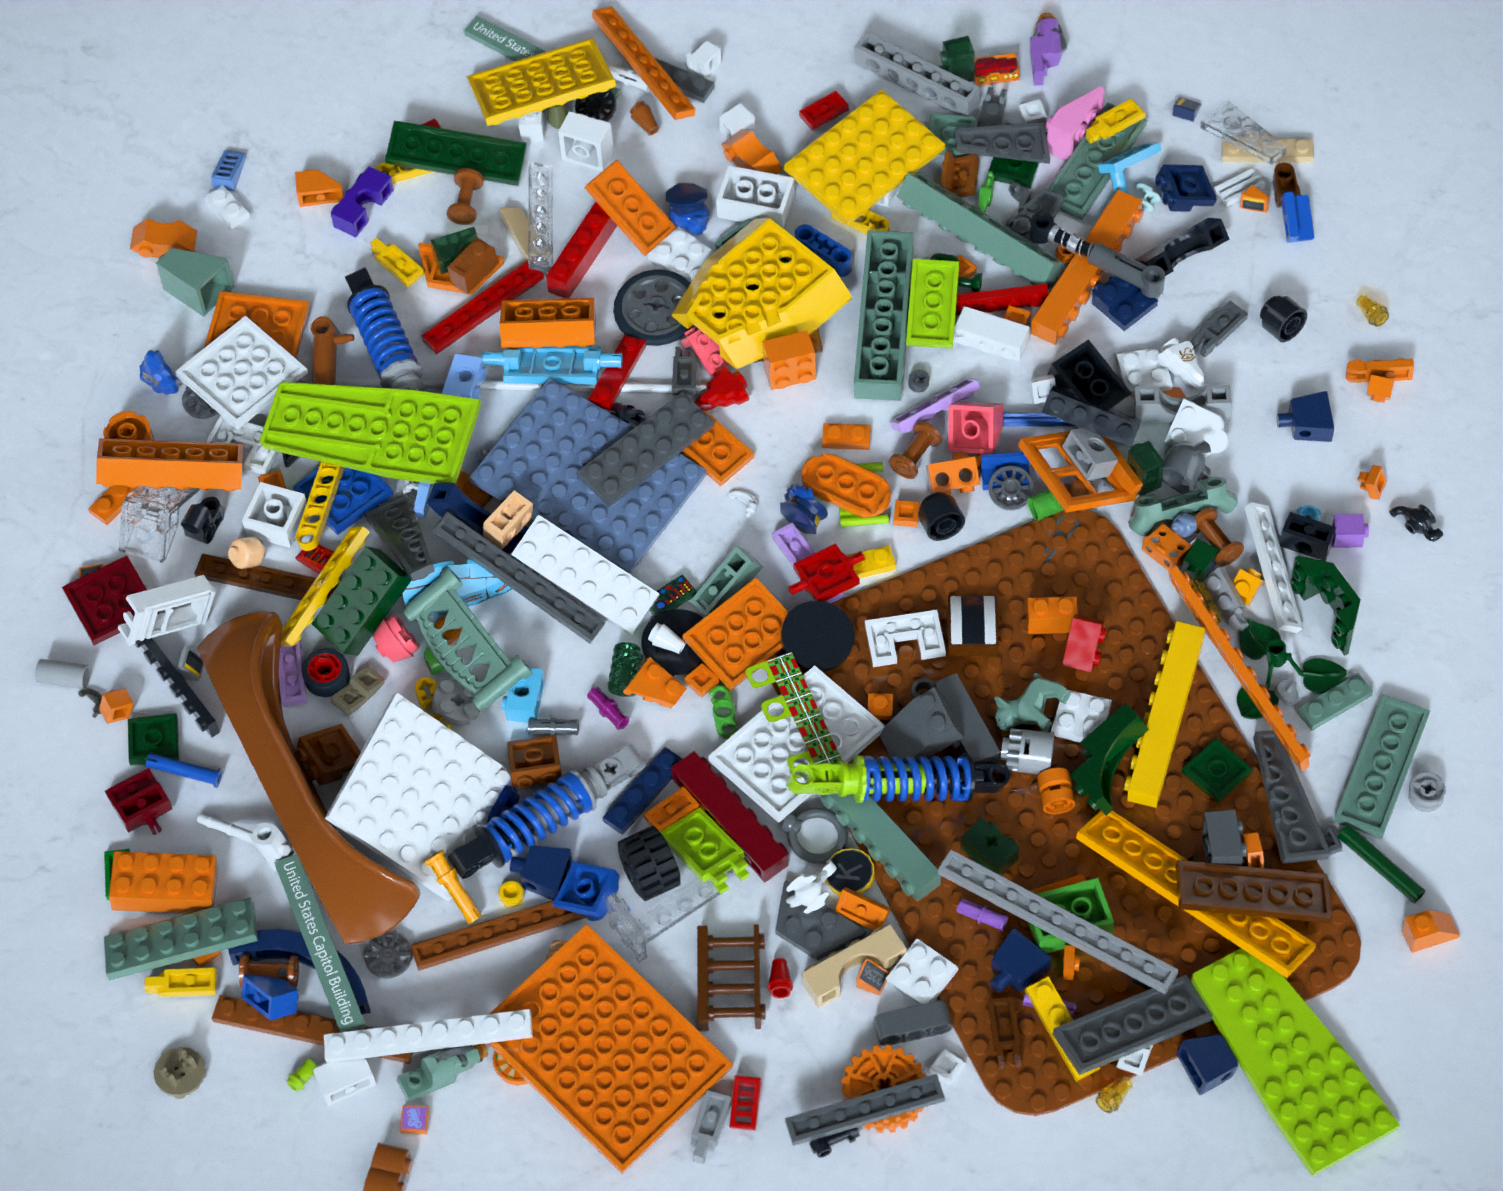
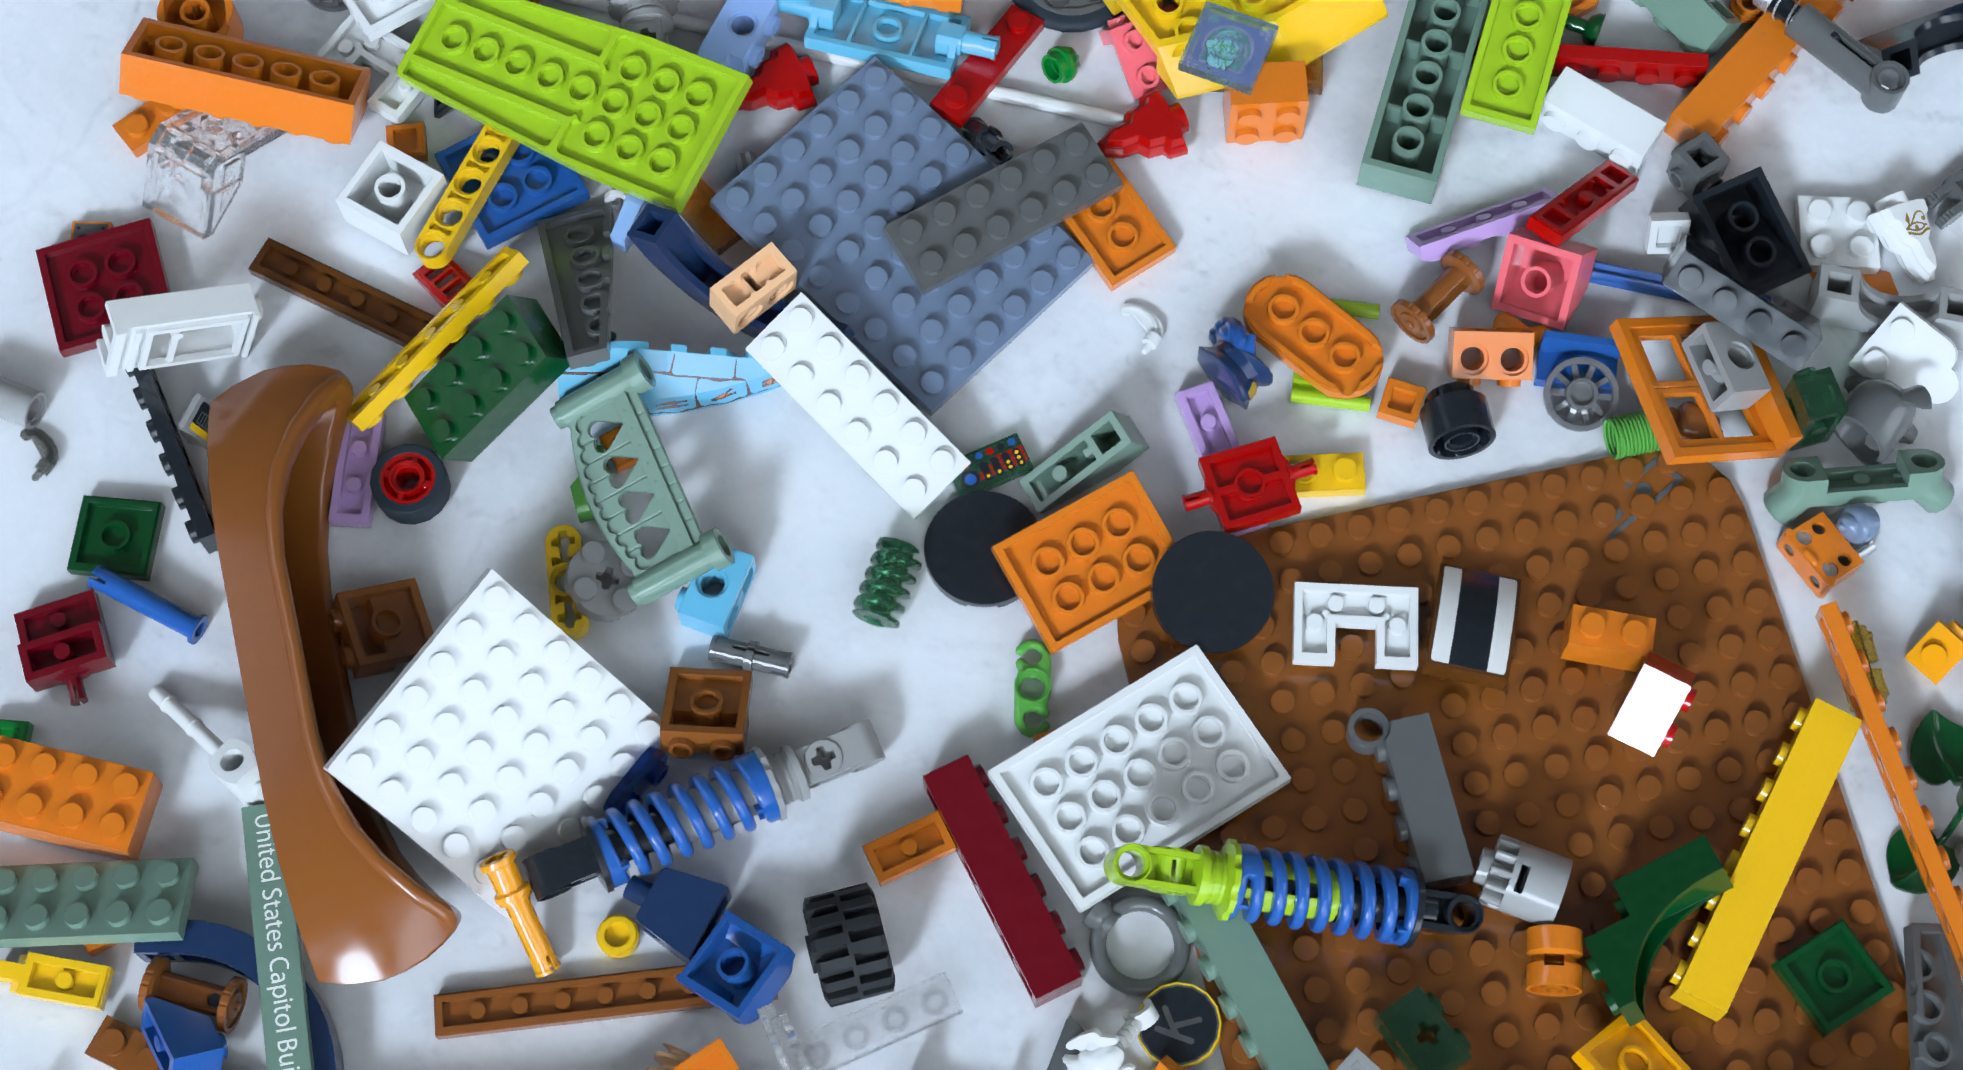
camera: 10 degrees right, 10 degrees up
(116, 705) = (68, 470): orange plate -> none
(200, 522) = (276, 188): black piece -> none
(246, 552) = (334, 252): light nougat head -> none
(359, 691) = (457, 525): dark tan slope -> none
(388, 955) = (395, 1006): flat silver wheel -> none
(394, 639) = (530, 452): coral cone -> none
(496, 405) = (782, 82): none -> red rock
(518, 577) = (749, 388): dark grey tile -> none
(608, 708) = (846, 642): magenta pin -> none
(642, 792) = (871, 800): dark blue plate -> none
(655, 685) = (929, 621): orange wing -> none
(661, 363) = (1060, 64): none -> green plate
(665, 638) = (965, 543): white cone -> none
(684, 372) = (1093, 88): dark grey hinge -> none
(701, 680) = (1008, 625): orange plate -> none
(706, 849) = (949, 931): lime tile -> none
(760, 331) = (1228, 48): none -> clear light blue tile
(801, 706) = (1159, 712): piece -> none
(846, 436) = (1330, 247): orange plate -> none
(881, 705) = (1291, 737): orange plate -> none
(918, 374) = (1471, 165): dark grey bush -> none
(921, 727) = (1348, 803): dark grey slope -> none
(989, 380) = (1582, 203): none -> red plate
(1017, 315) = (1648, 97): orange plate -> none
(1030, 705) = (1541, 796): sand green animal -> none
(1052, 346) = (1697, 165): none -> dark grey brick
(1080, 716) = (1620, 828): white plate -> none
(1122, 302) = (1823, 107): dark blue plate -> none
(1200, 560) = (1871, 590): dark green brick -> none
(1226, 598) = (1904, 667): light grey hinge -> none
(1228, 551) = (1908, 555): dark orange hose -> none

